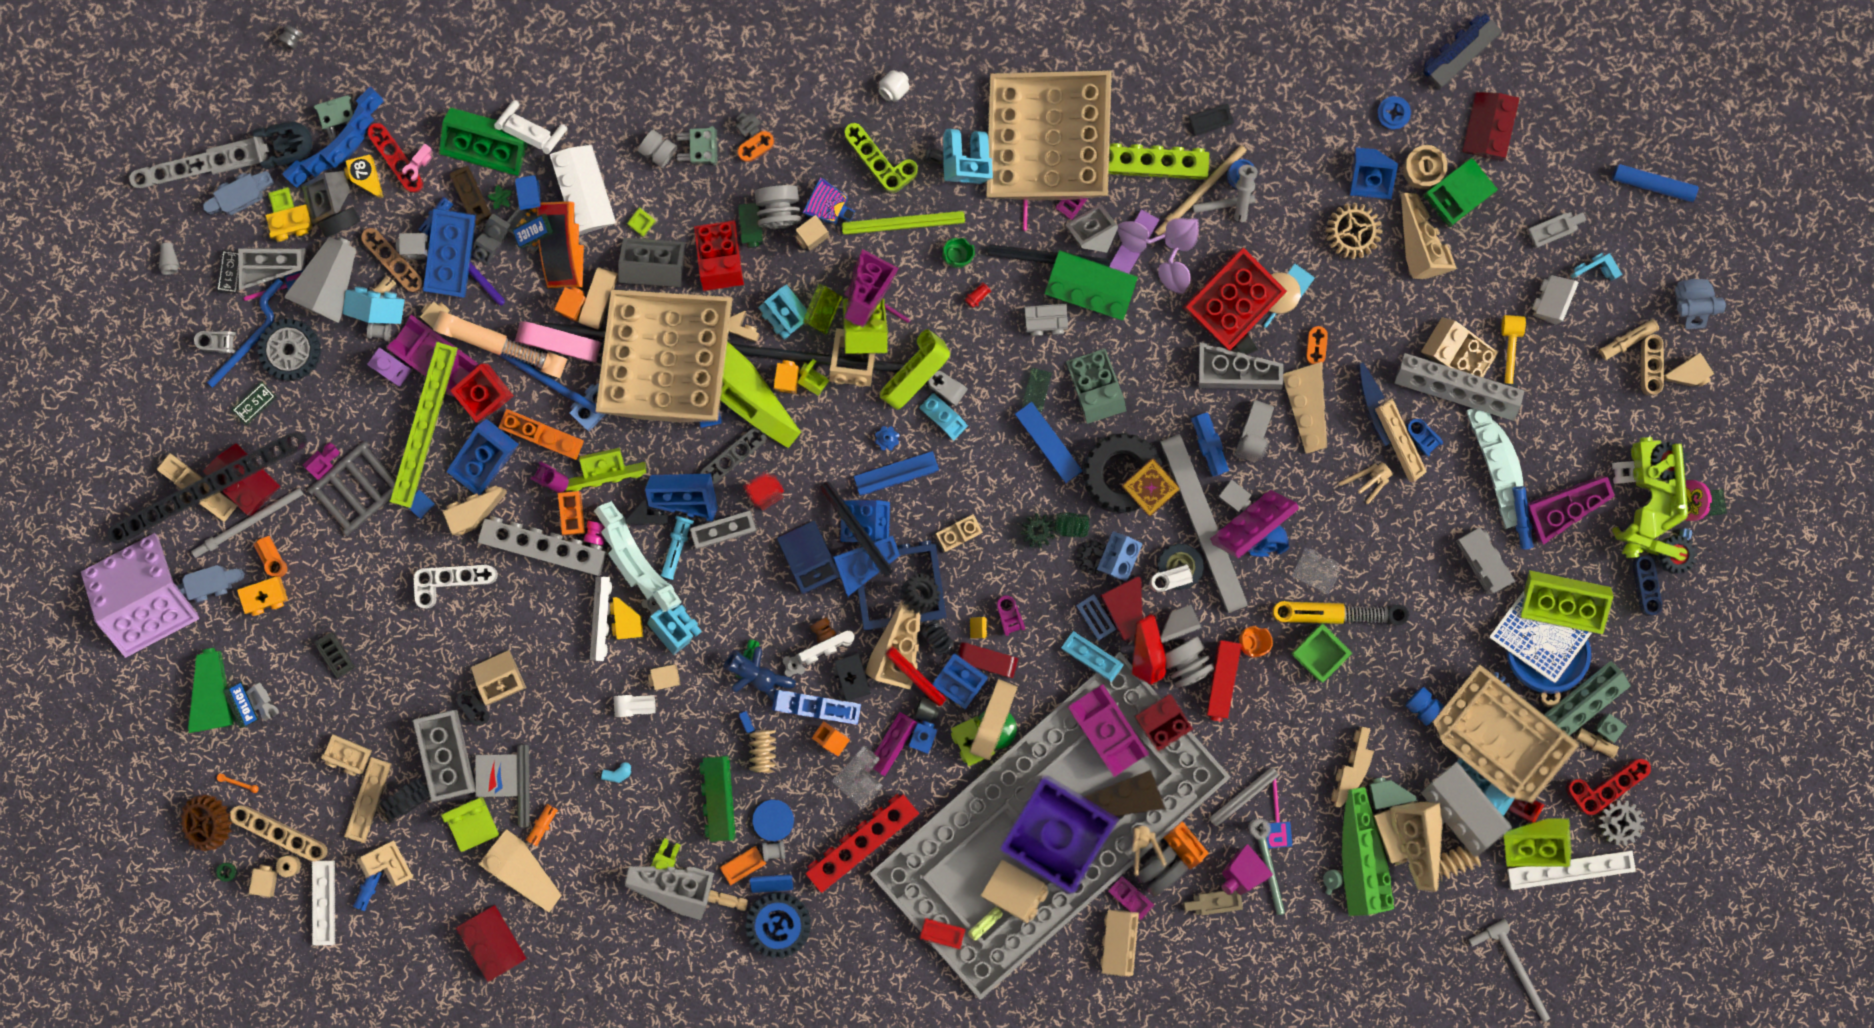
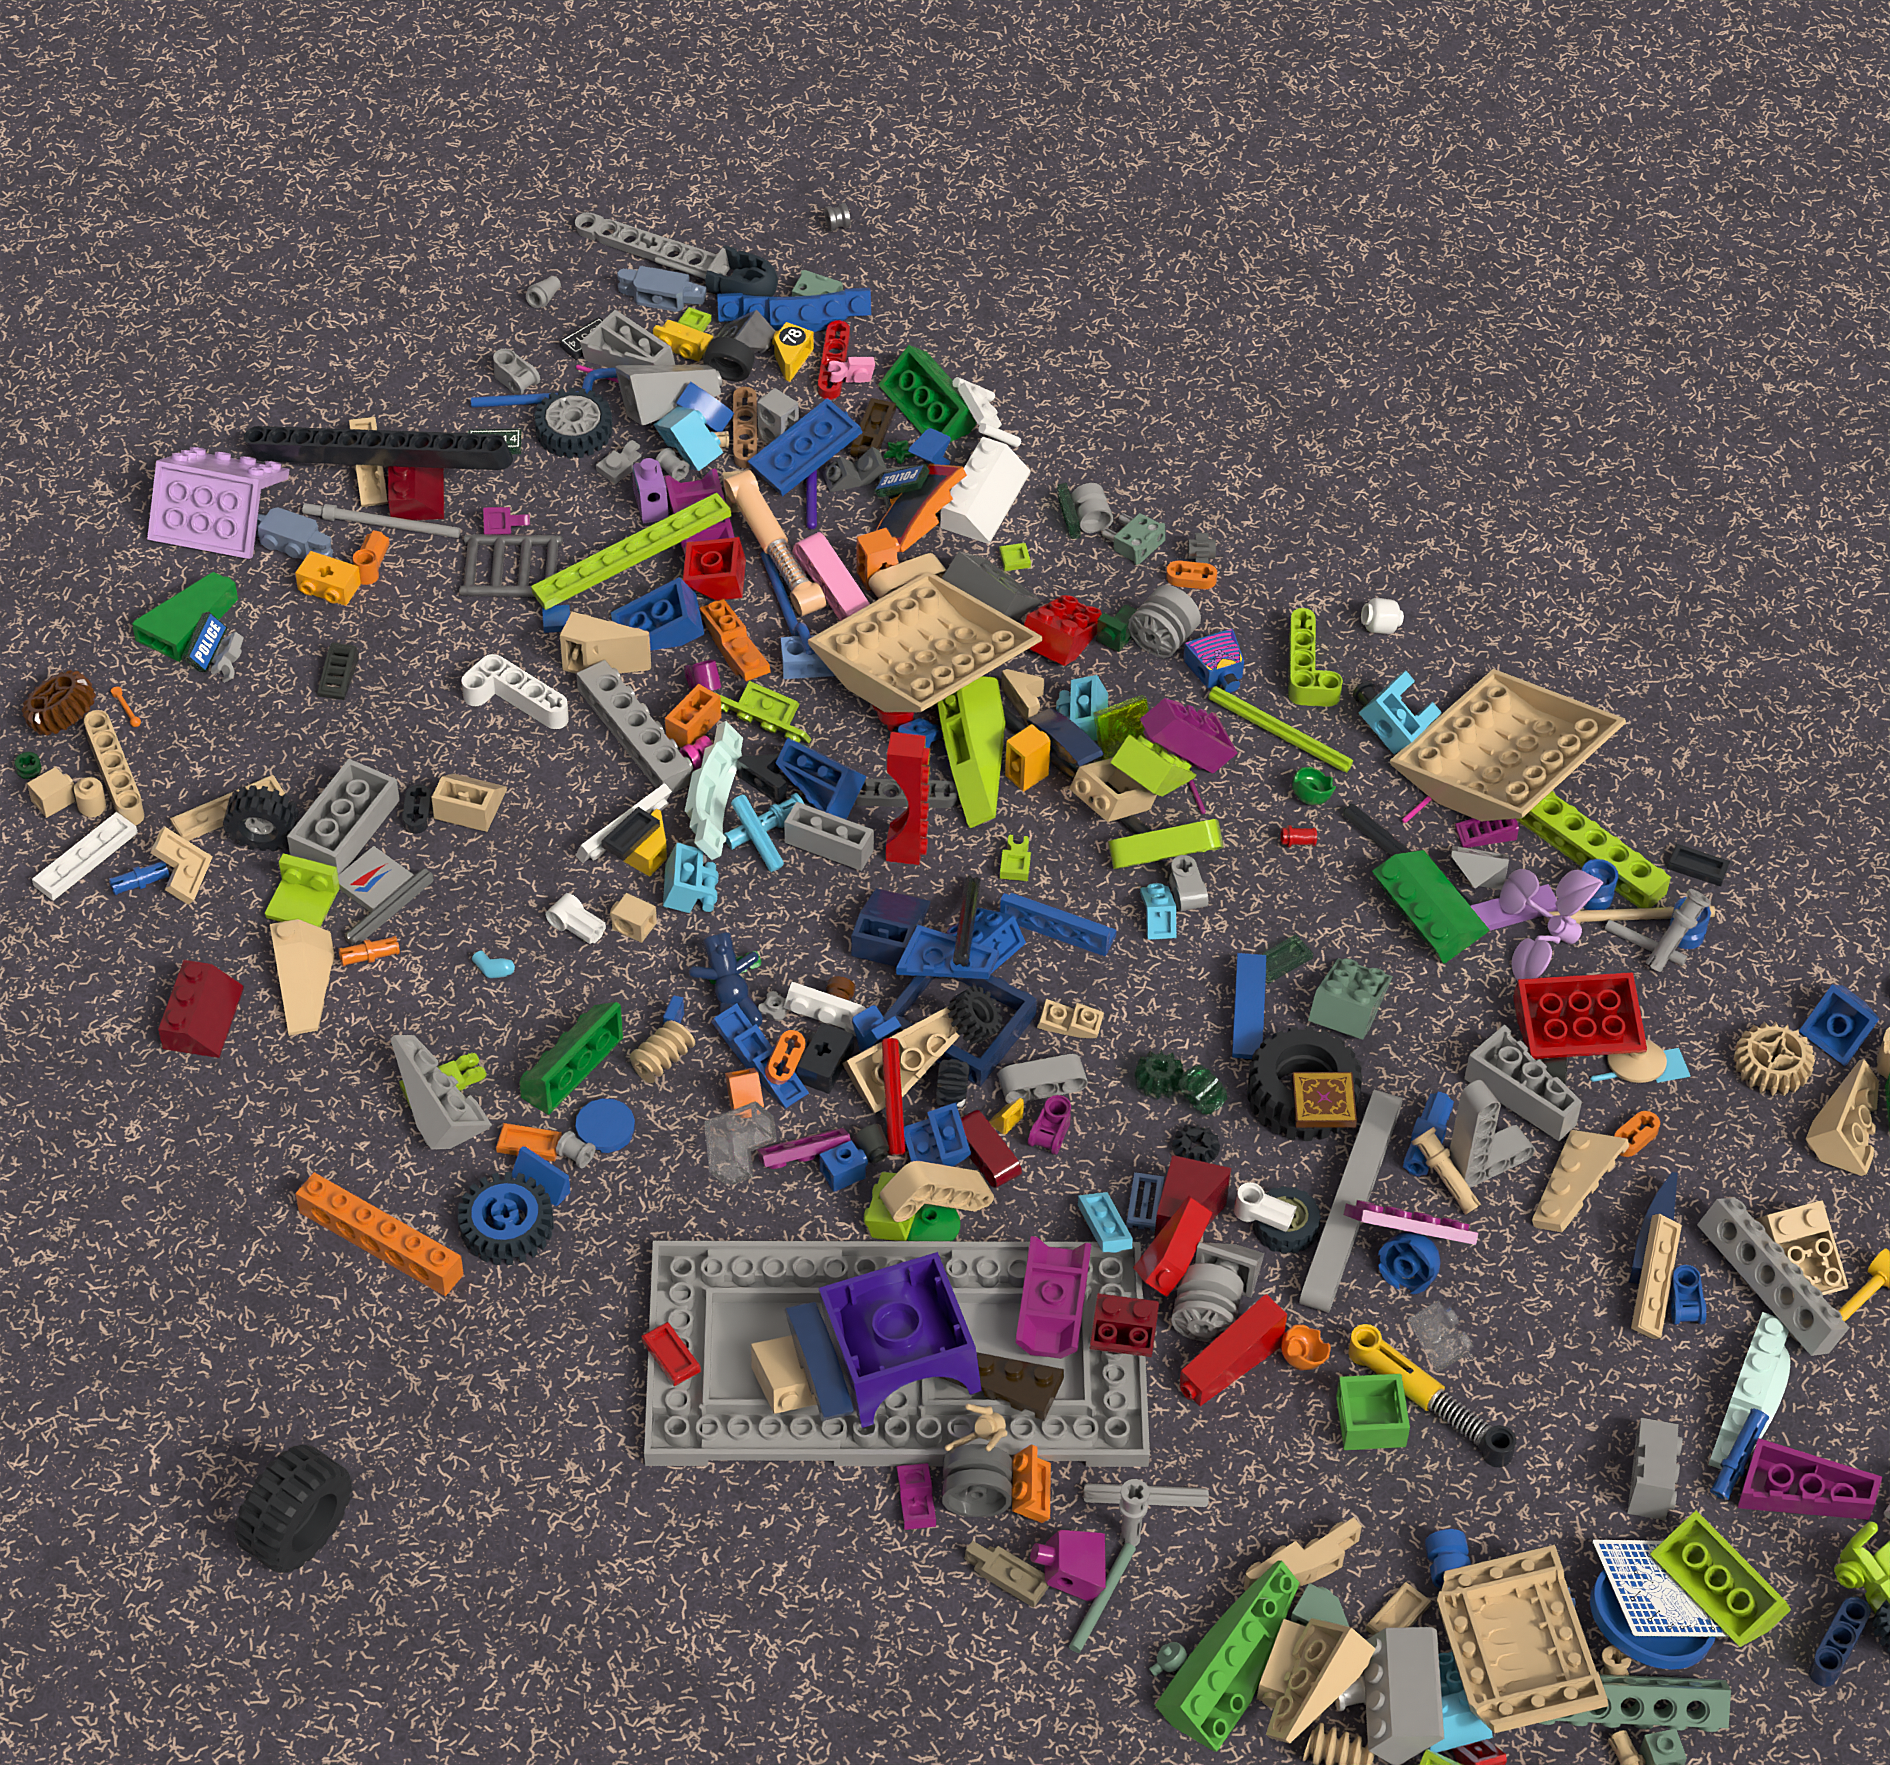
camera: 40 degrees right, 35 degrees down
(344, 358) = (617, 465): none -> light grey plate
(347, 755) = (252, 754): tan bracket -> none
(361, 275) = (714, 411): none -> slope
(616, 629) = (630, 833): none -> black tile
(645, 162) = (1068, 511): none -> clear green tile
(681, 562) = (757, 833): none -> medium azure axle
(723, 993) = (379, 1234): none -> orange brick
(728, 900) = (476, 1157): tan axle -> none
(797, 348) = (1066, 737): none -> dark blue slope
(811, 233) = (1177, 664): tan brick -> none
(812, 379) = (1051, 781): lime bracket -> none
(823, 880) = (662, 1220): red brick -> none
(830, 702) = (790, 1060): none -> orange beam
(838, 453) = (1015, 860): none -> lime plate
(868, 642) = (872, 1027): none -> blue slope
(887, 438) = (1079, 885): blue plant -> none
(978, 588) = (1043, 1078): none -> light grey beam
(984, 924) = (727, 1383): yellowish green axle -> none
(1032, 884) = (819, 1361): none -> dark blue slope
(1046, 319) = (1352, 902): light grey brick -> none
(1119, 556) = (1227, 1148): medium blue brick -> none
(1119, 942) = (858, 1522): tan brick -> none
(1171, 190) = (1609, 875): none -> blue wheel
(1235, 464) = (1438, 1157): none -> tan pin
(1235, 496) = (1411, 1194): light grey brick -> none
(1279, 831) = (1153, 1566): piece -> none
(1379, 474) = (1602, 1298): tan plant -> none
(1421, 756) = (1400, 1611): none -> tan tile

